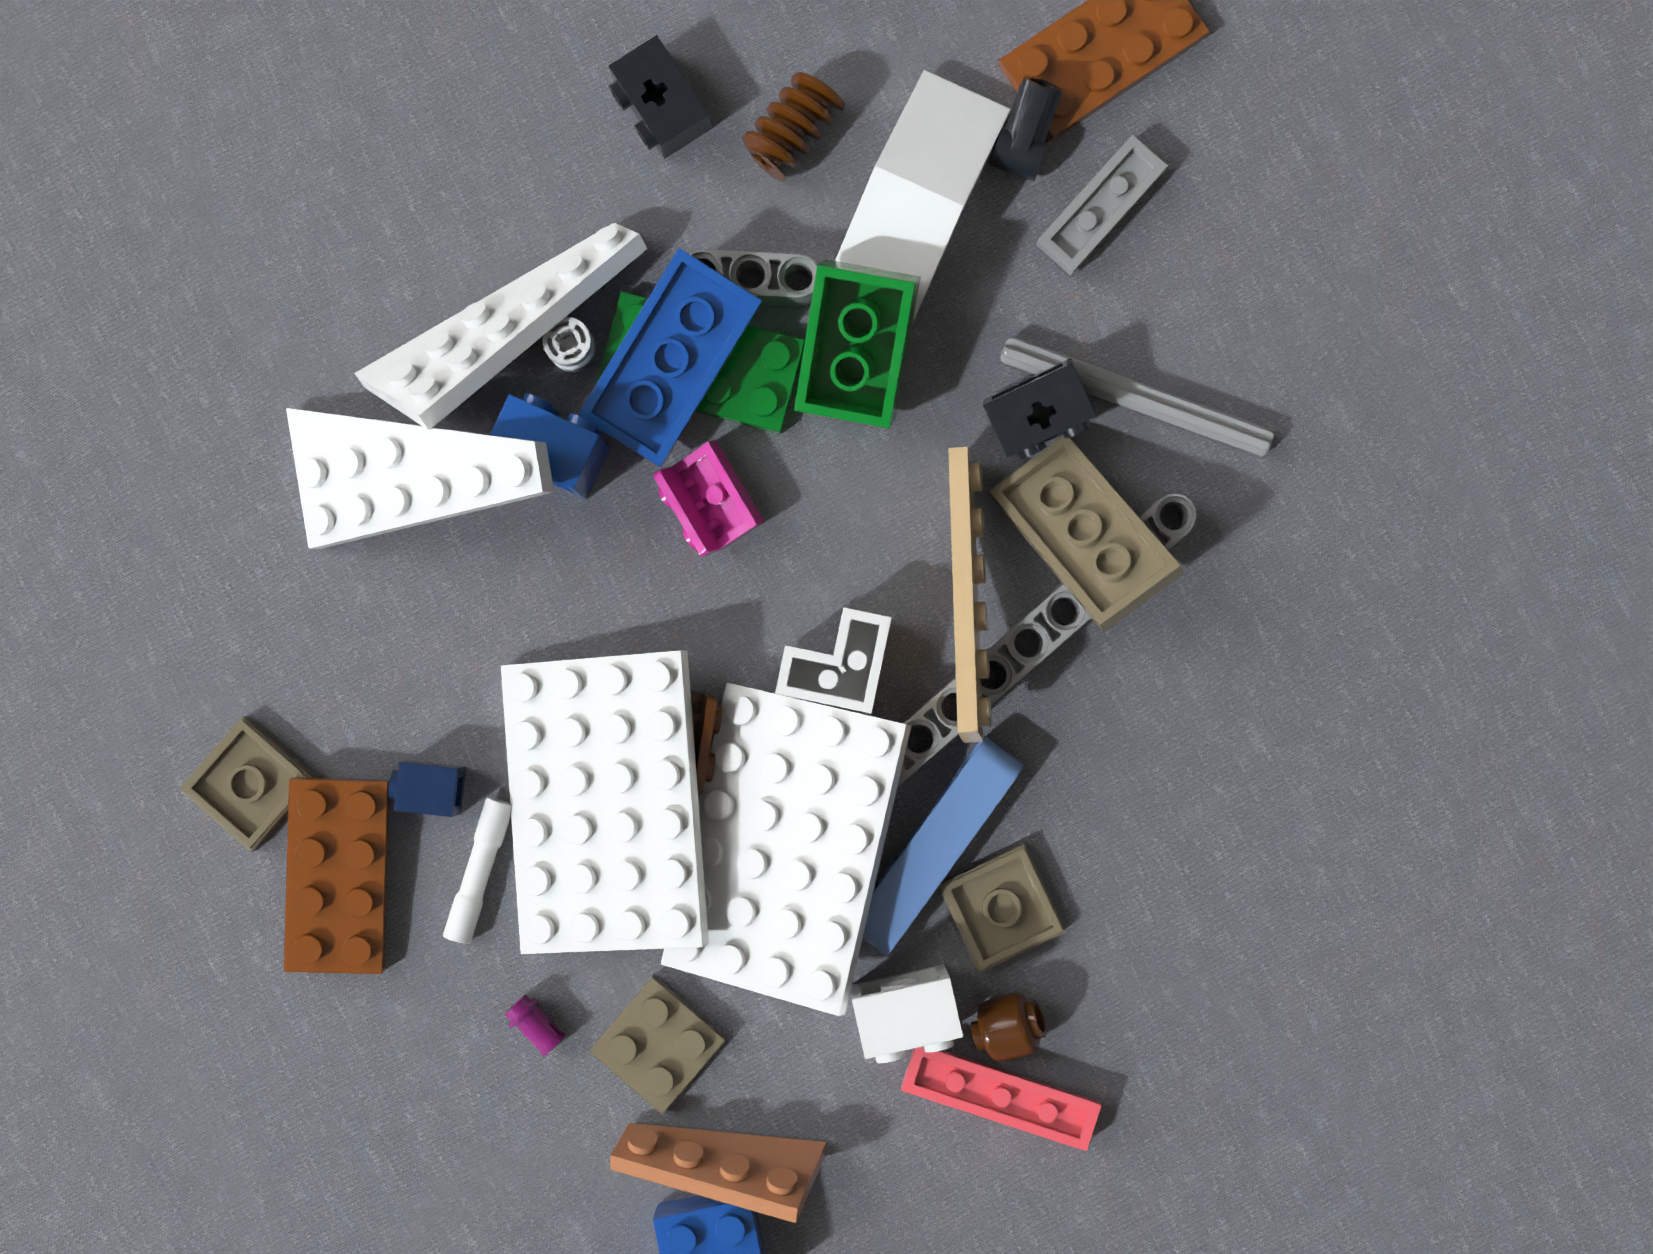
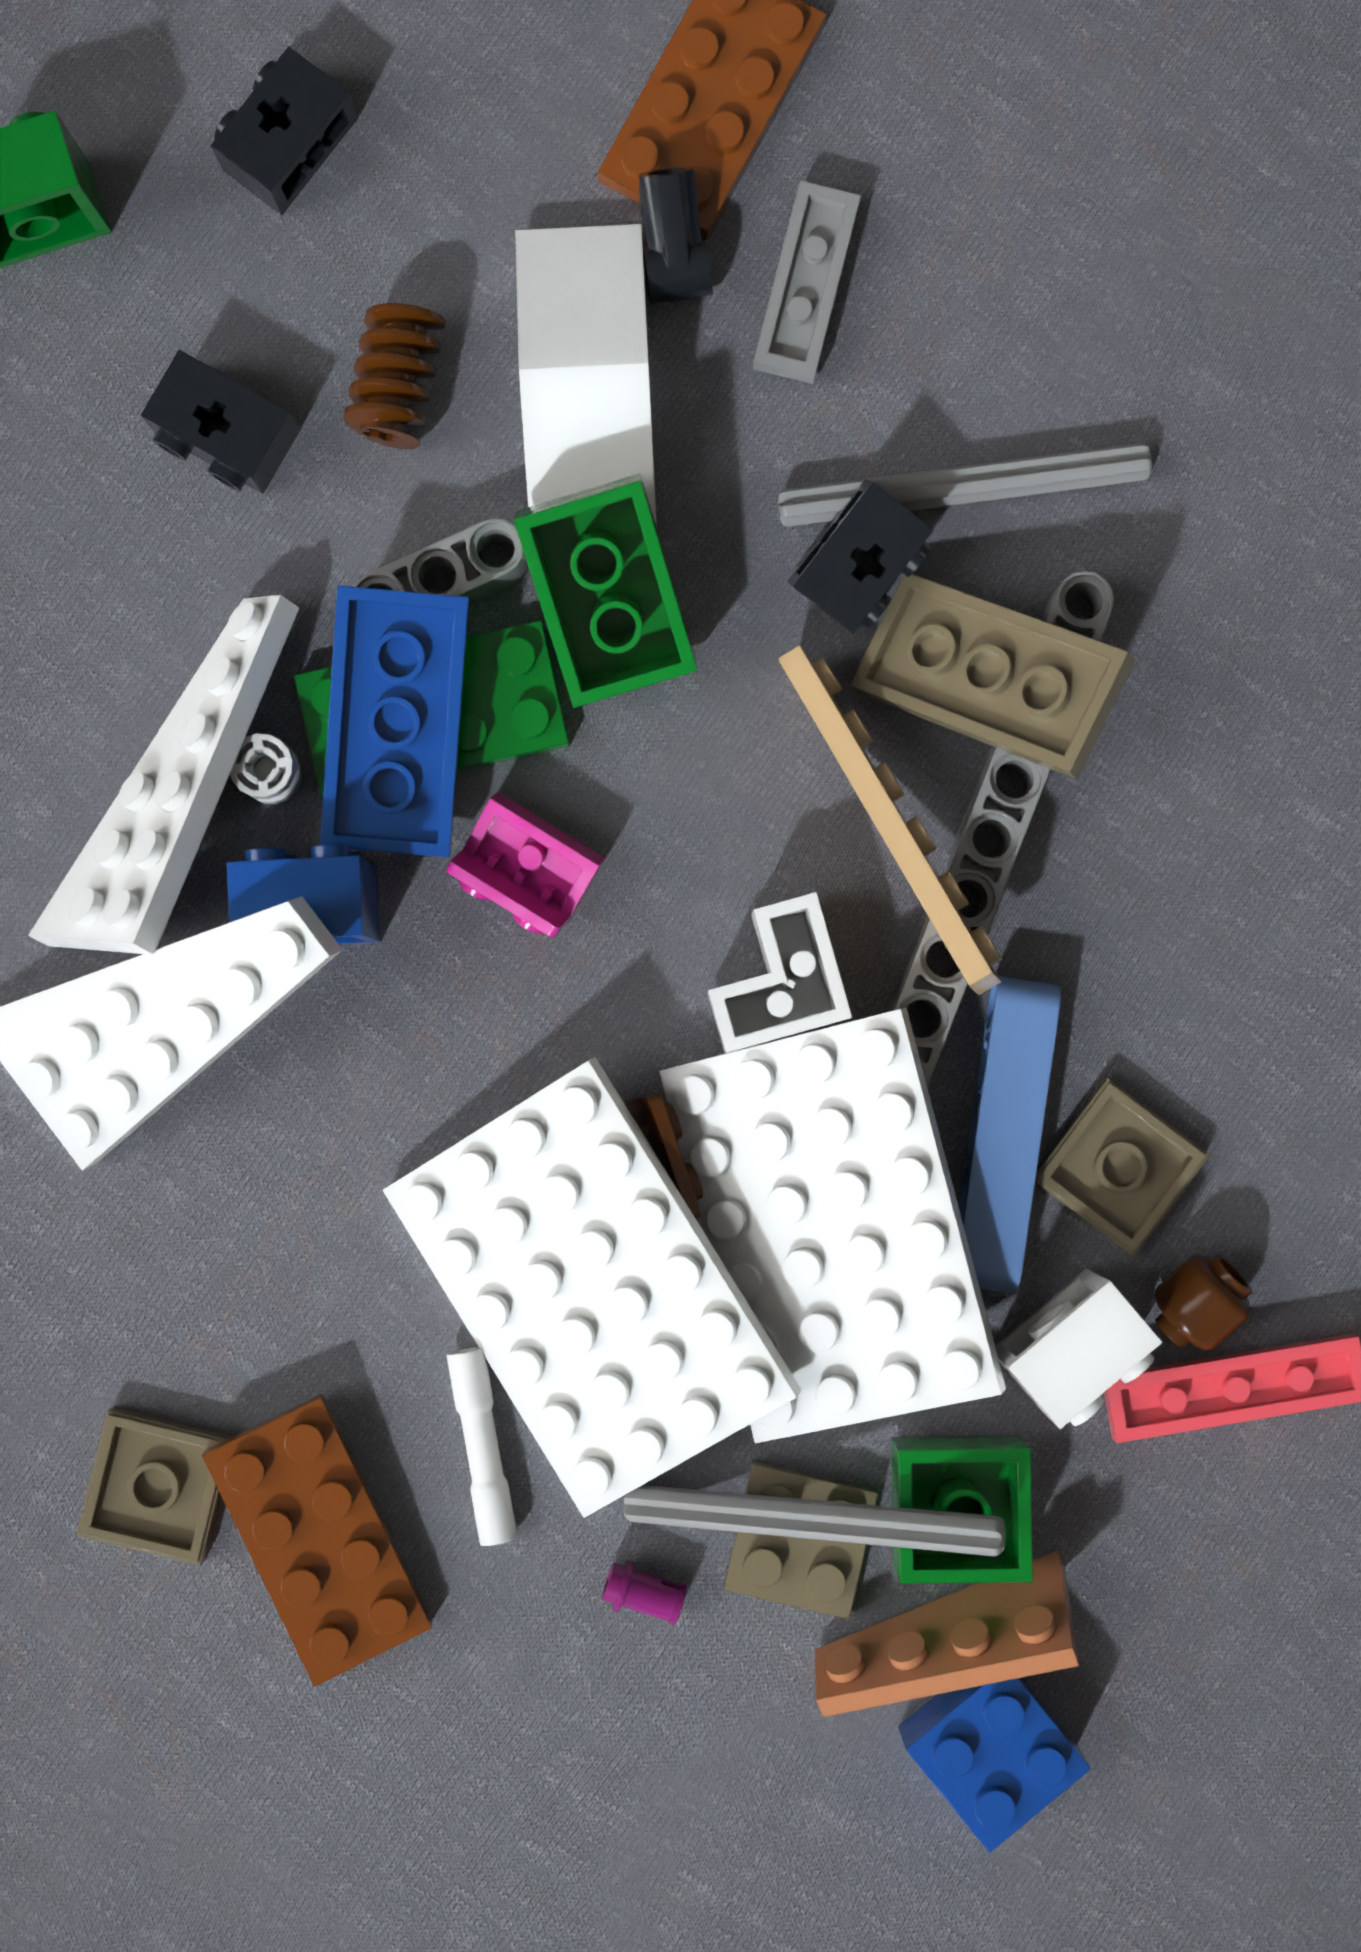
camera: 30 degrees left, 0 degrees up
(428, 788) = (372, 1380): dark blue brick -> none
(673, 1035) = (817, 1520): none -> light grey axle
(774, 1080) = (971, 1478): none -> green brick

